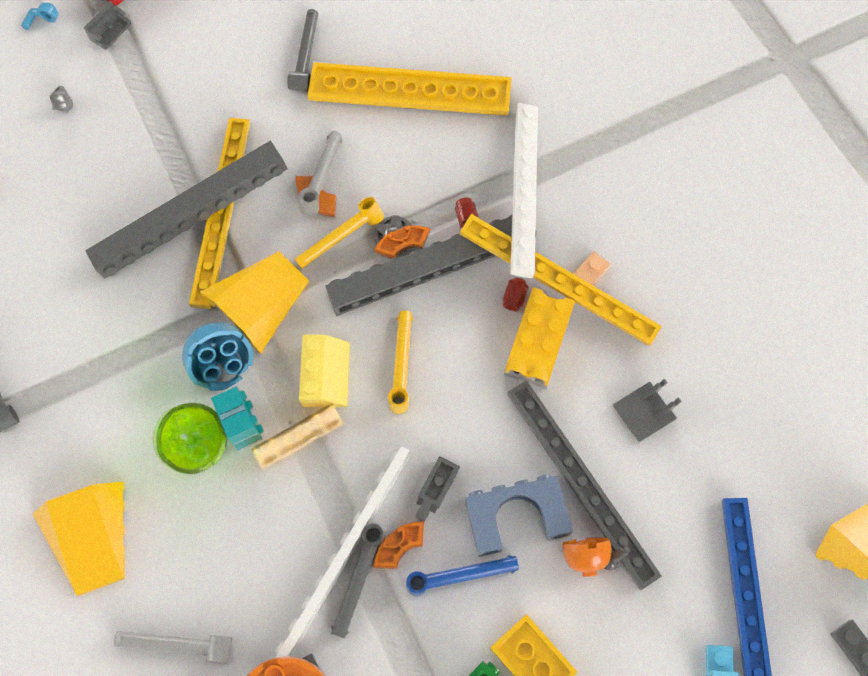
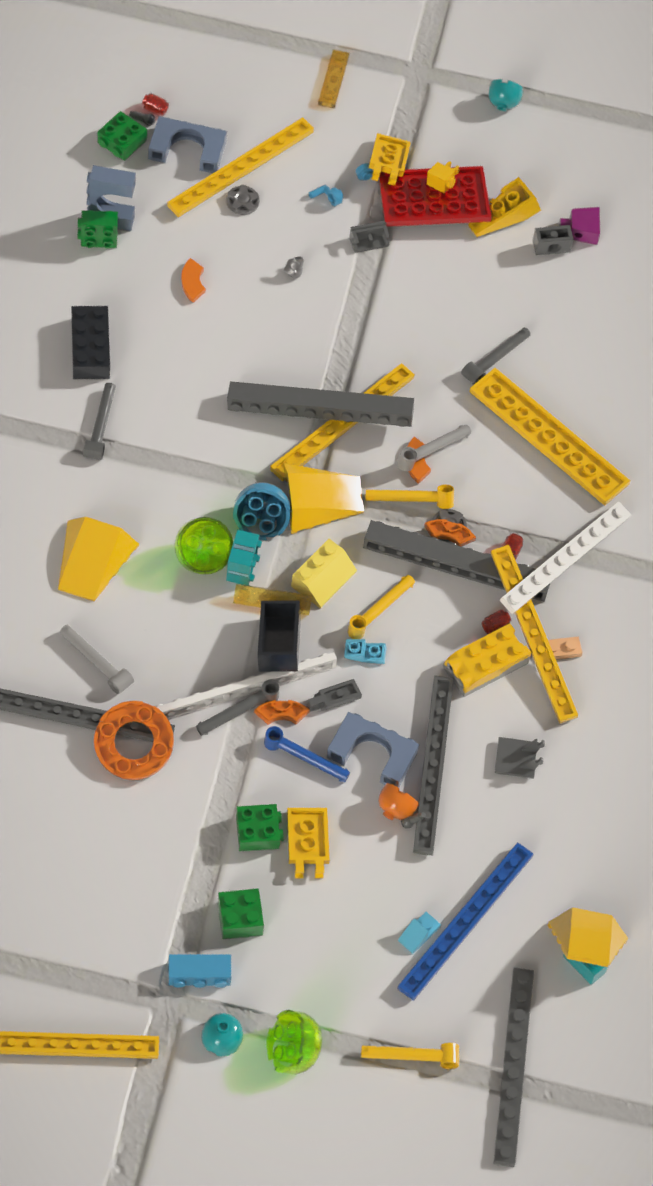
camera: 30 degrees right, 10 degrees down
(338, 475) = (279, 636): none -> black piece
(424, 418) = (365, 652): none -> medium azure slope

